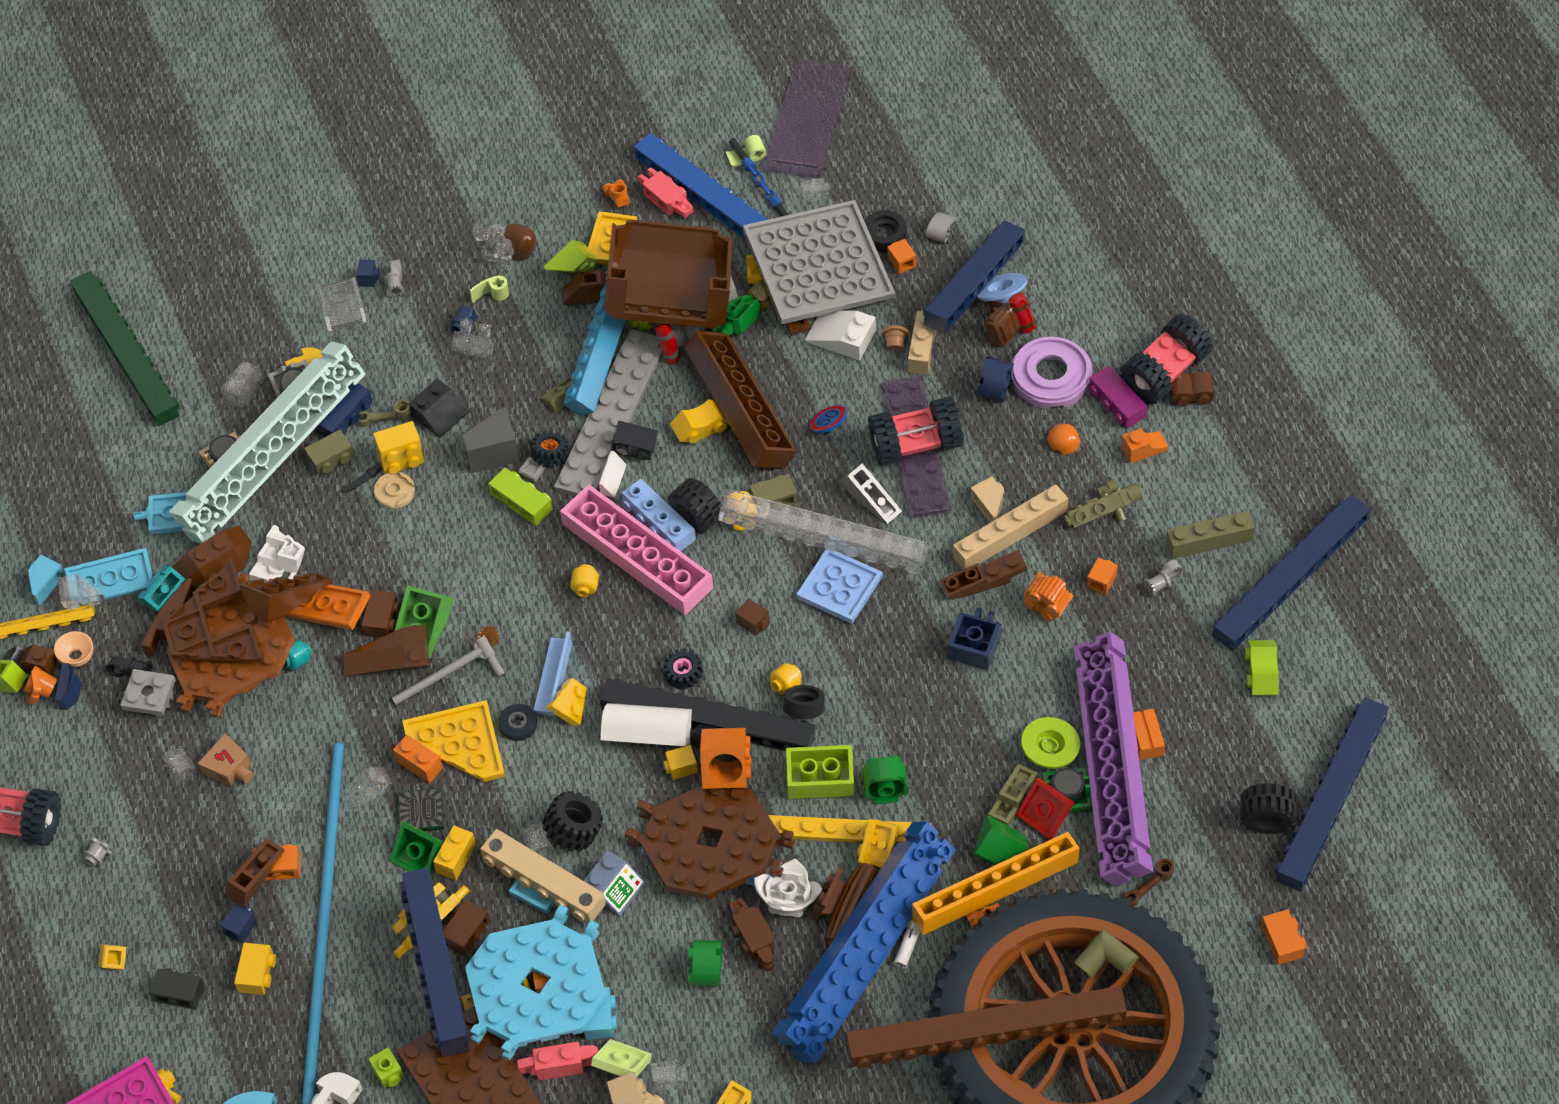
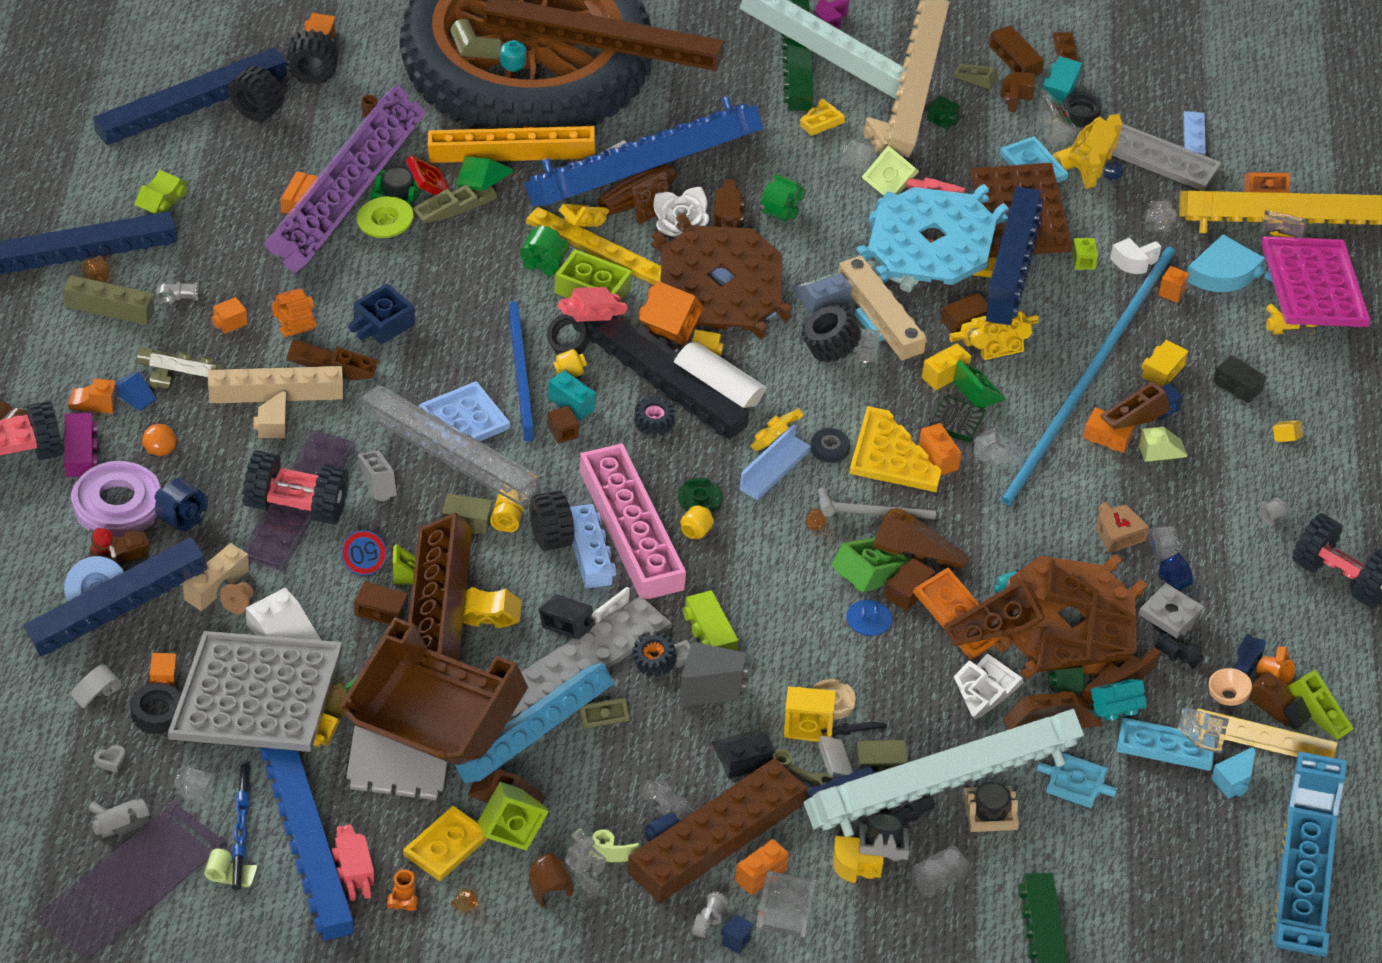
camera: 160 degrees left, 10 degrees down
(161, 742) = (1176, 572): none -> clear blue brick
(219, 871) = (1160, 444): none -> yellowish green slope
(282, 1072) = (1173, 284): none -> orange brick
(363, 440) = (834, 757): none -> white slope
(375, 325) = (753, 870): none -> orange brick
(399, 575) = (869, 617): none -> blue piece
(421, 336) = (716, 830): none -> reddish brown brick
(571, 208) = (465, 900): none -> clear orange plate
(601, 622) = (709, 497): none -> dark green tile
(762, 646) = (570, 392): none -> teal brick
(784, 386) = (380, 603): none -> reddish brown brick
(790, 420) = (402, 566): none -> lime slope
(794, 716) = (592, 304): none -> coral hinge
(823, 652) = (520, 370): none -> blue tile
(844, 144) = (120, 818): none -> light grey piece
(889, 186) = (111, 758): none -> light grey tile
(1055, 956) = (513, 55): none -> teal head
(1122, 468) = (135, 391): none -> blue slope
(1247, 559) = (95, 269): none -> clear orange plate
(1255, 882) = (316, 45): none -> black tyre

